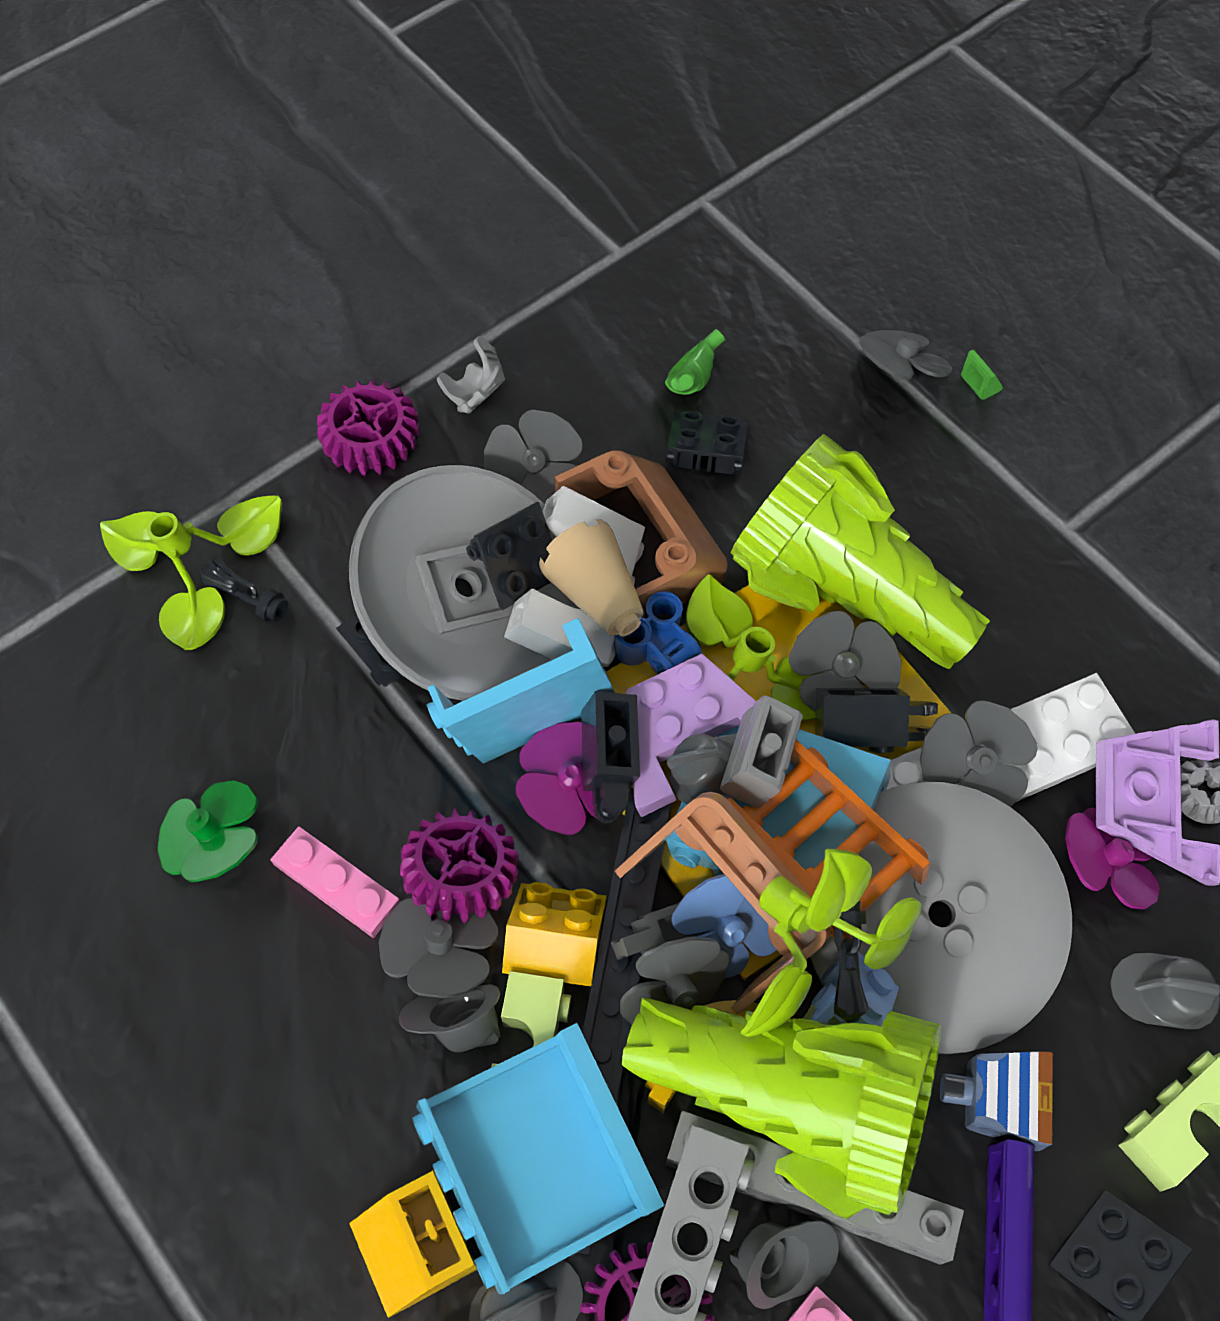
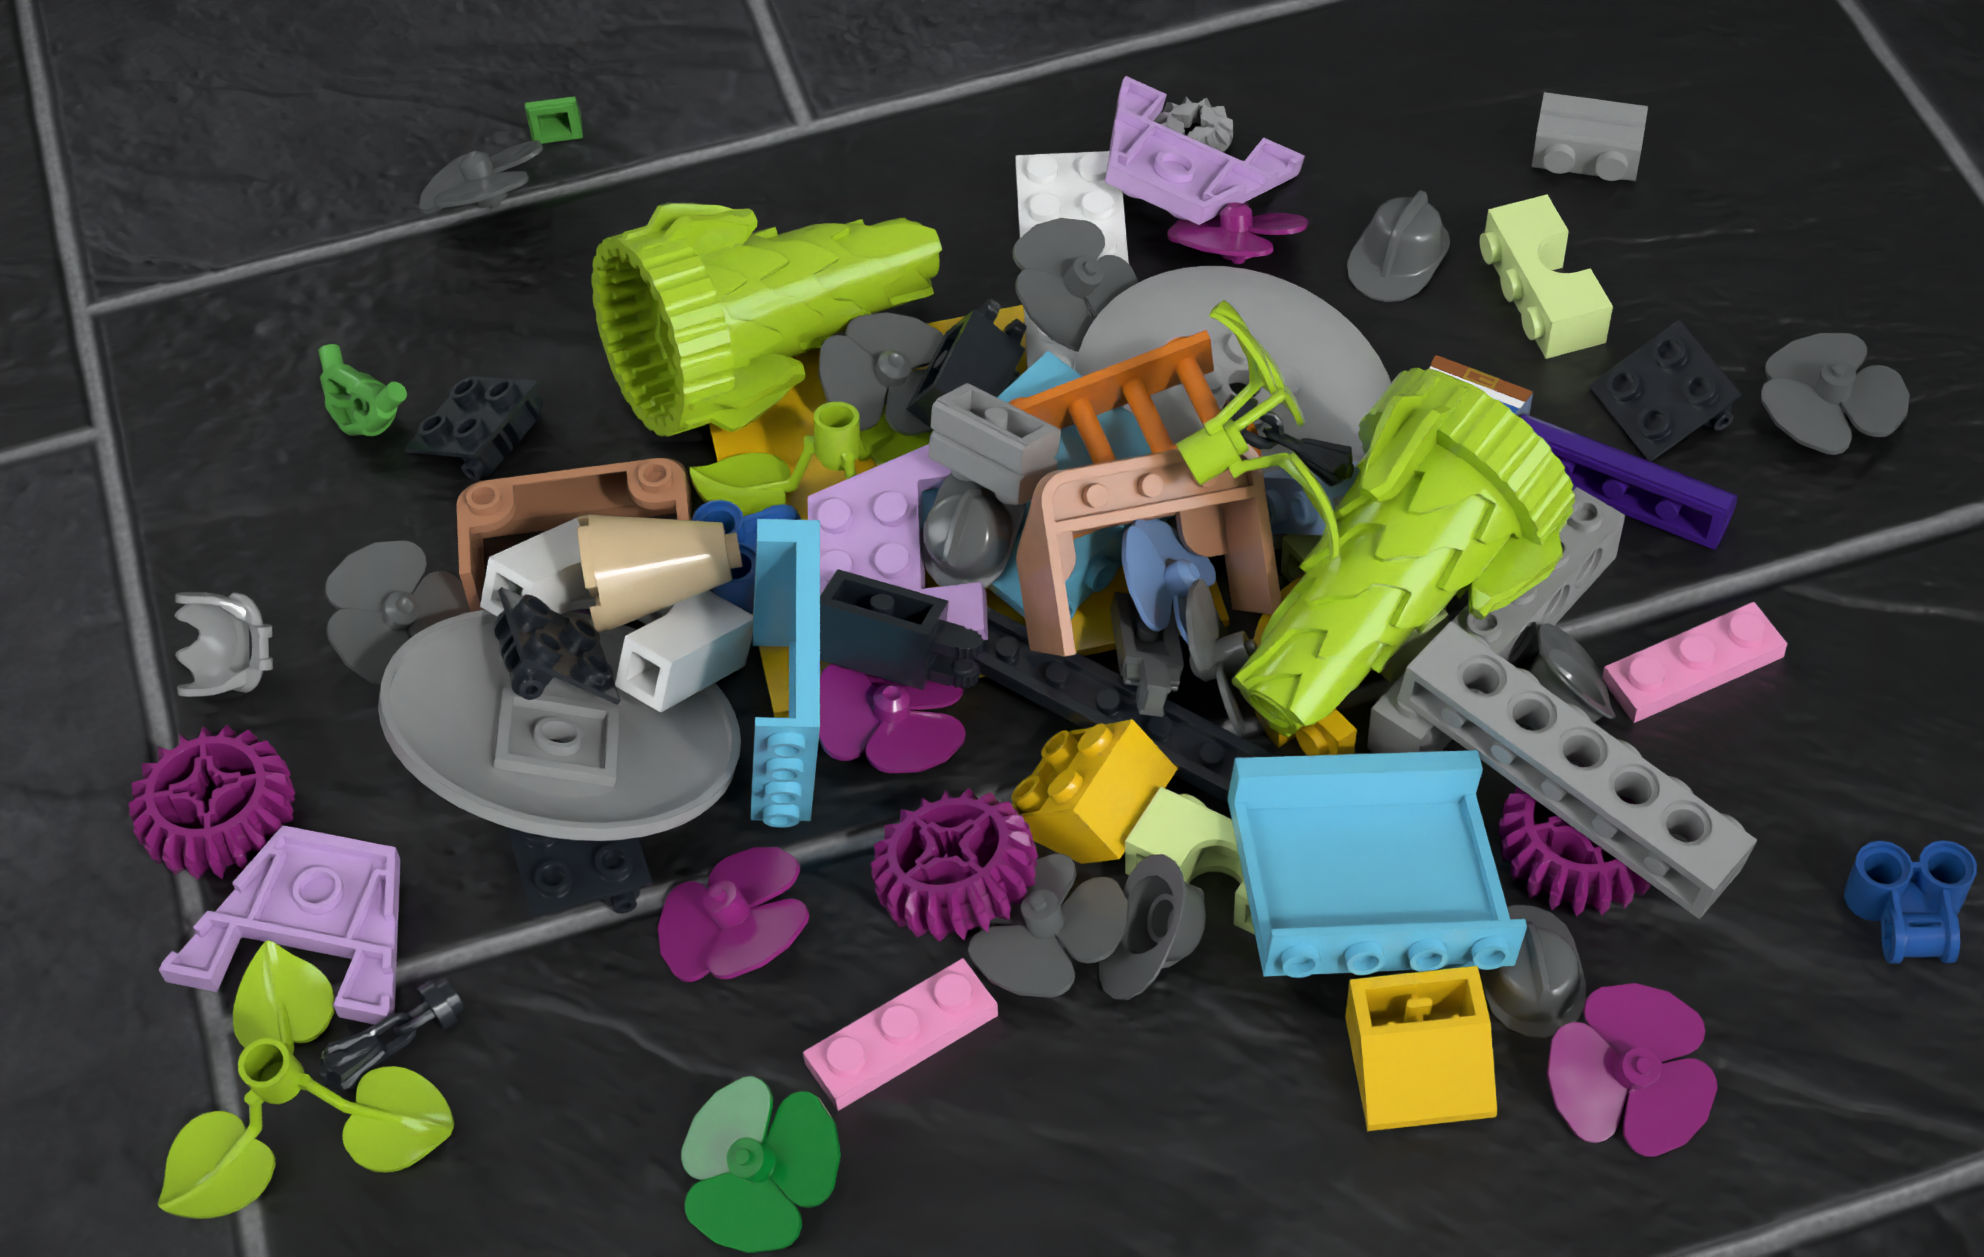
camera: 65 degrees left, 10 degrees down
(323, 513) = (314, 897): none -> lavender wing
(369, 745) = (722, 927): none -> magenta piece

